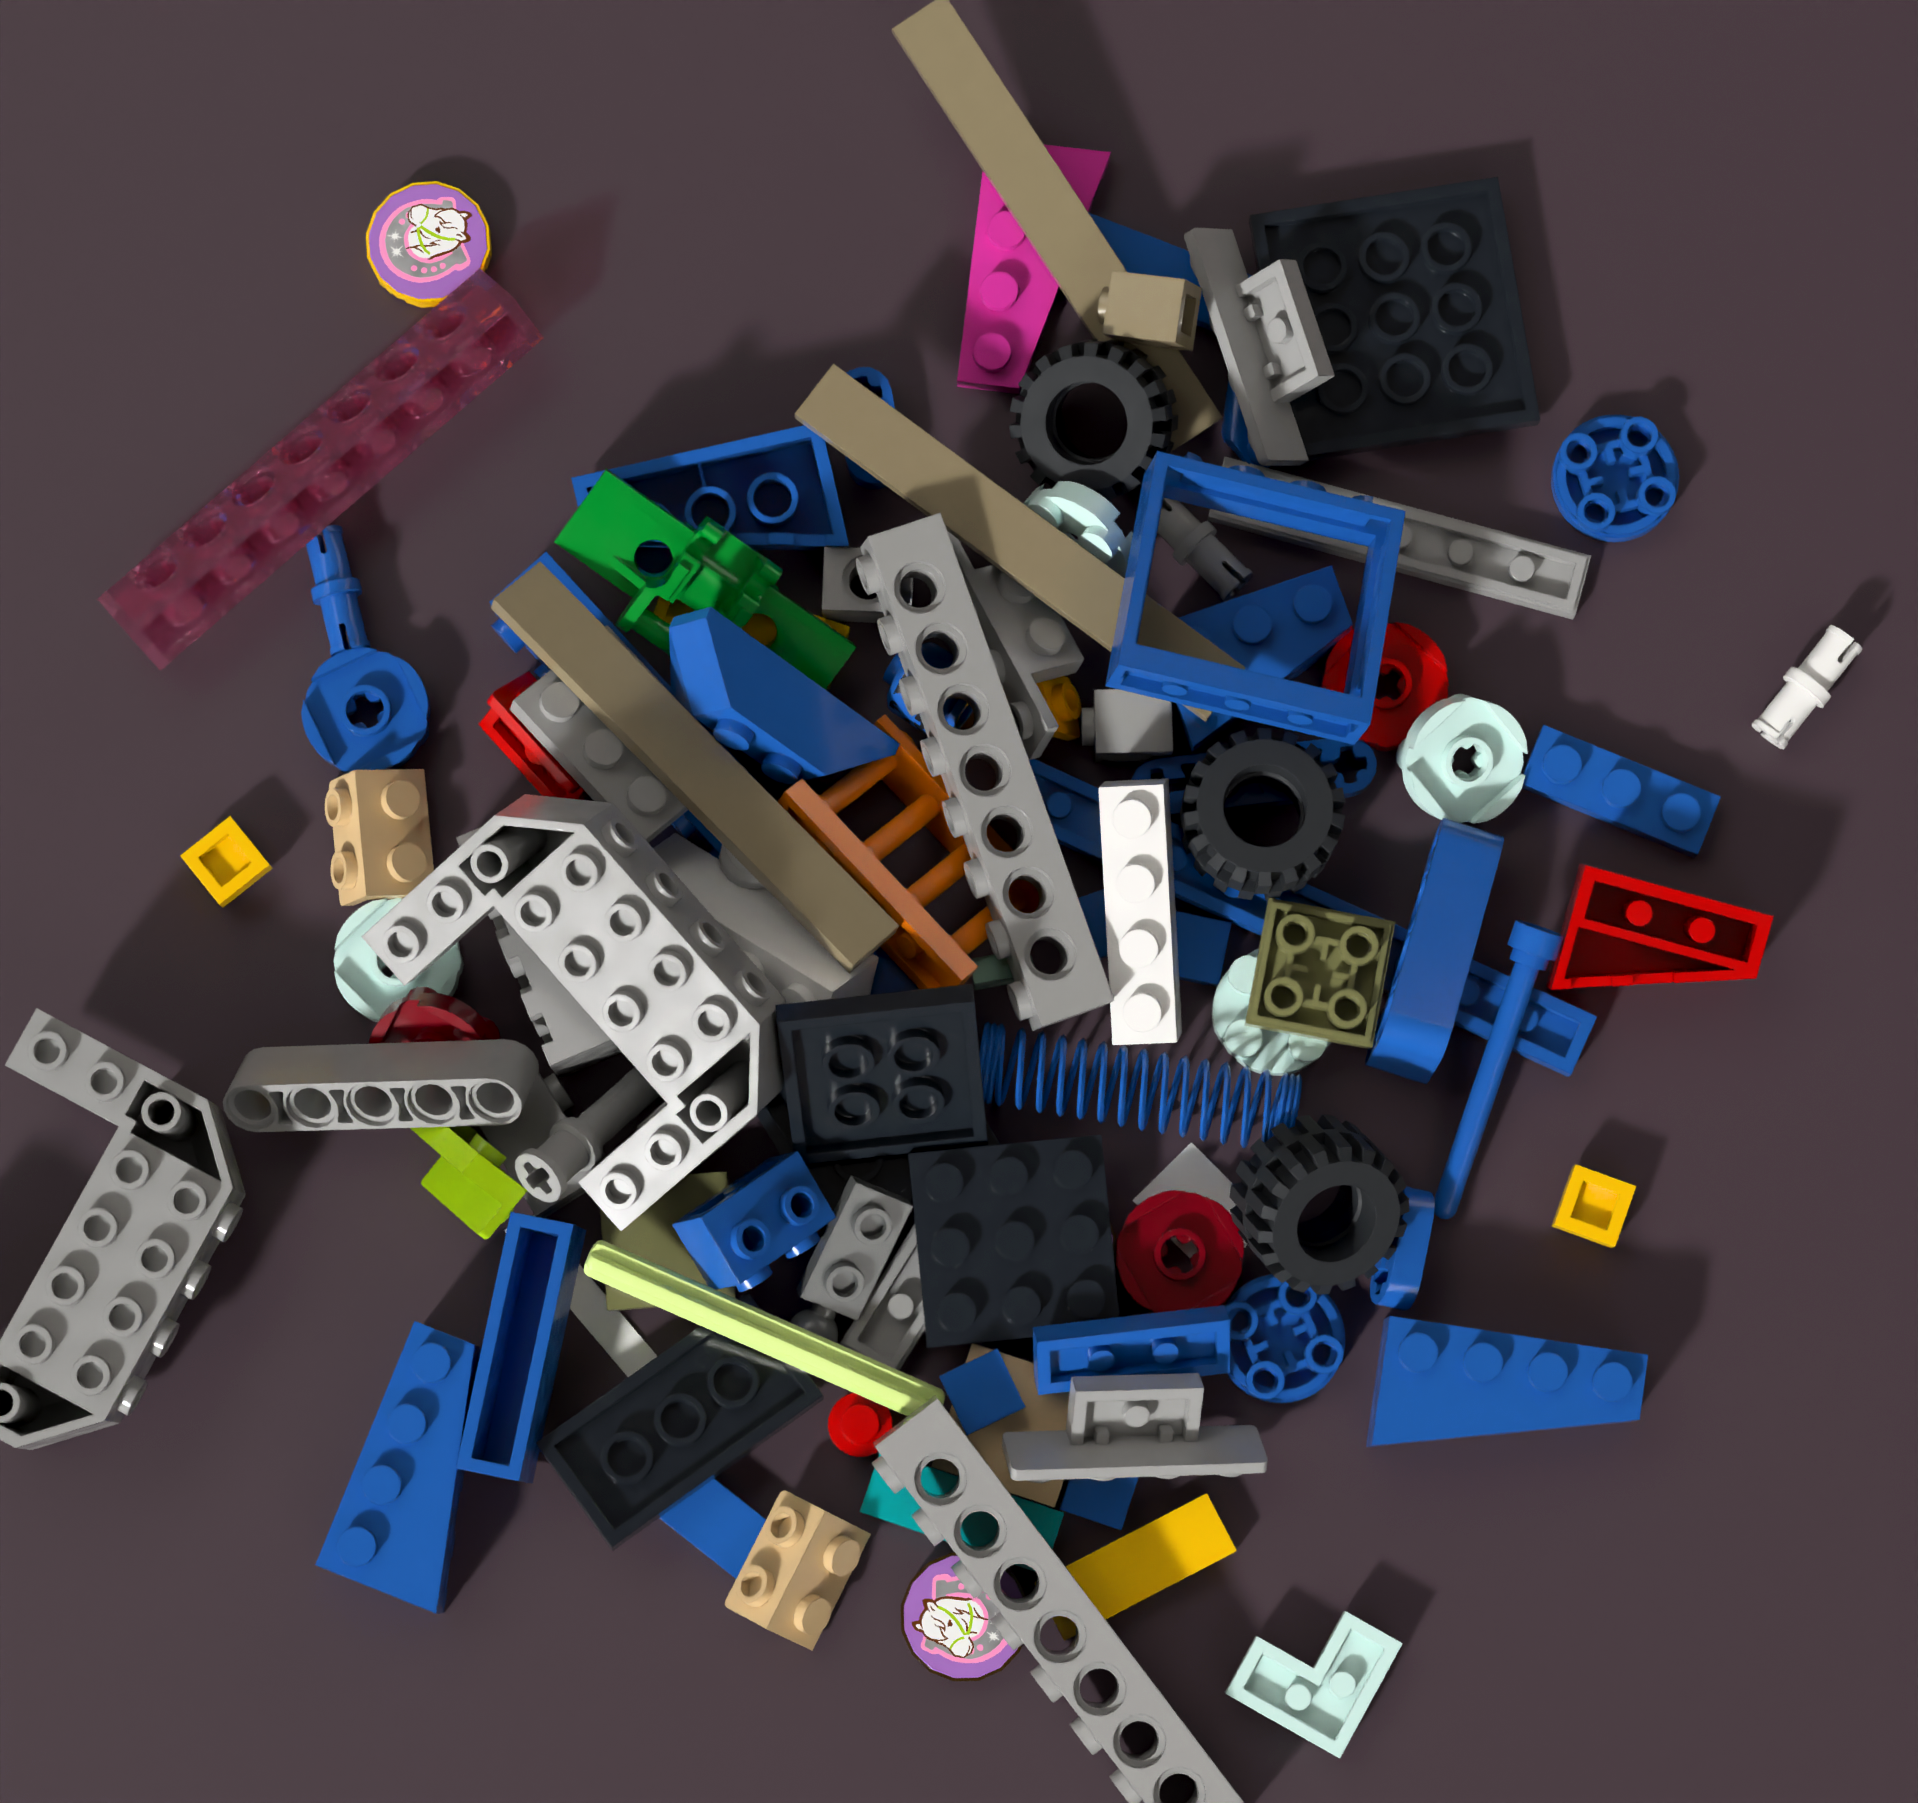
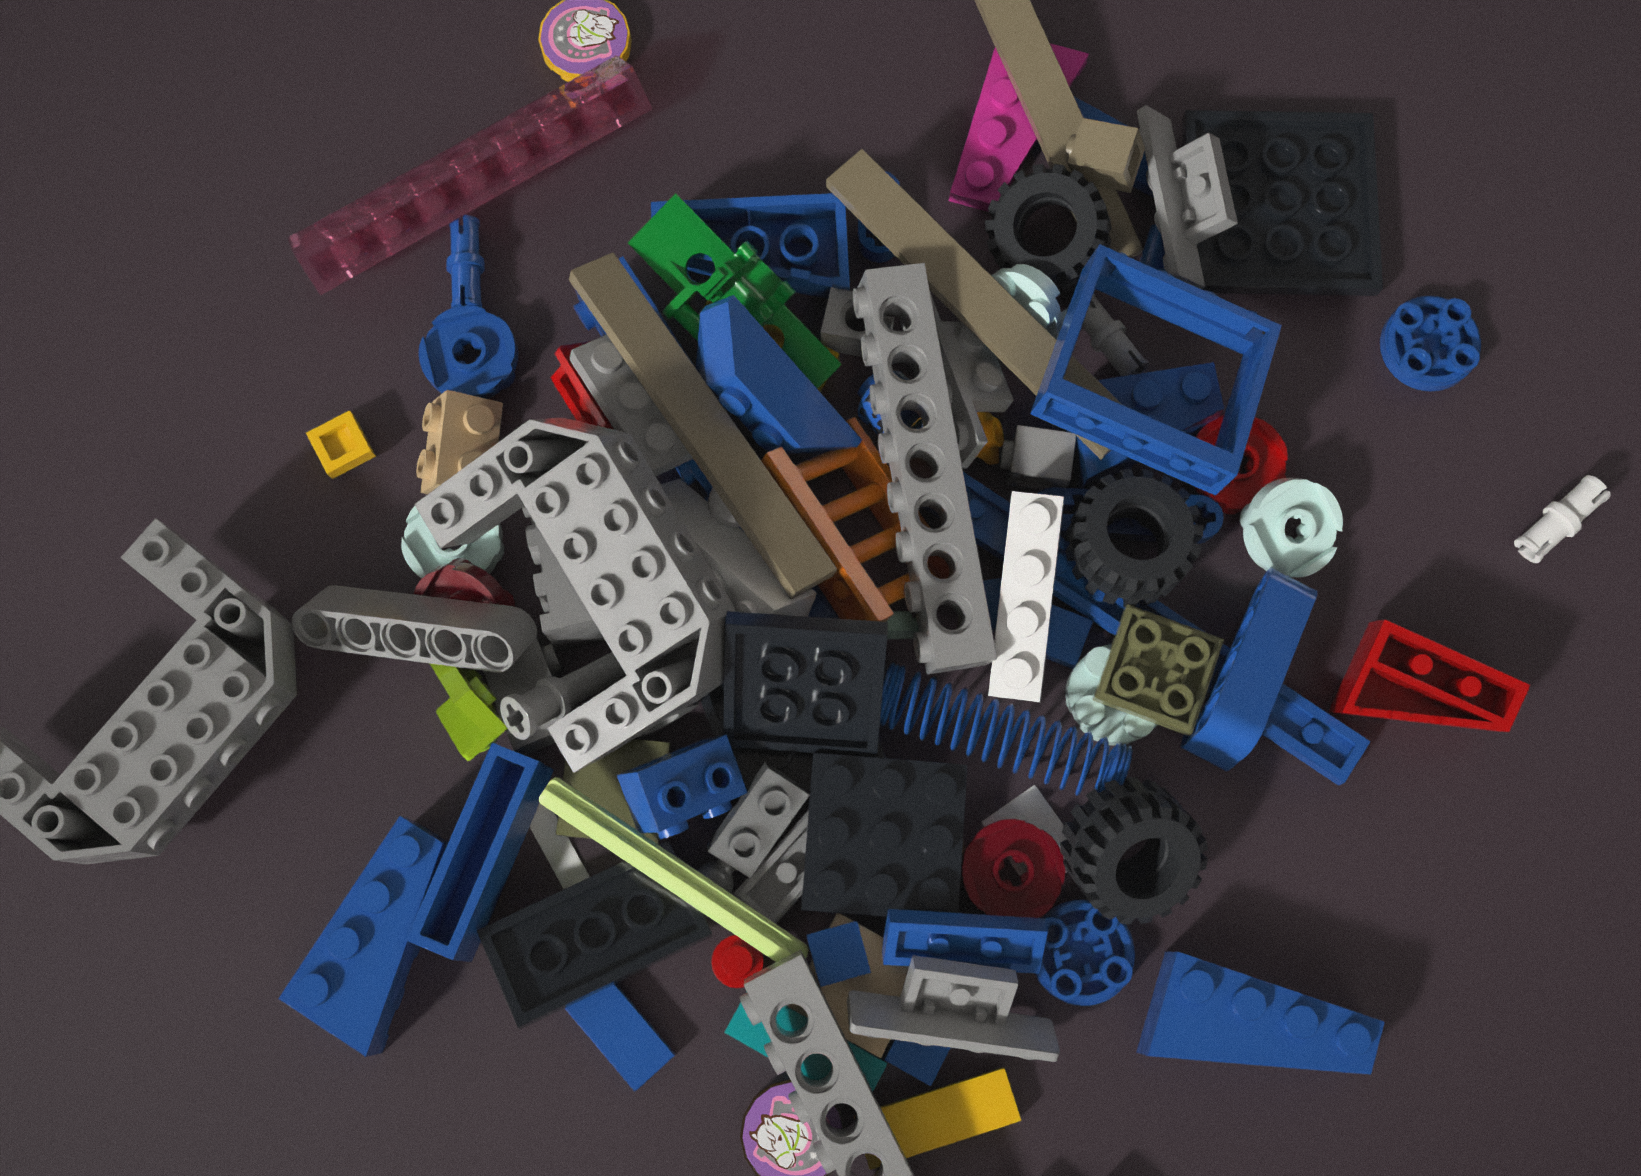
camera: 10 degrees right, 5 degrees down
(797, 1570) = (664, 1072): tan bracket -> none
(1400, 1276) = (1188, 921): blue beam -> none
(1450, 553) = (1292, 375): light grey tile -> none
(1531, 951) = (1329, 680): blue piece -> none
(1593, 1206) = (1347, 891): yellow plate -> none
(1619, 791) = (1406, 574): blue plate -> none

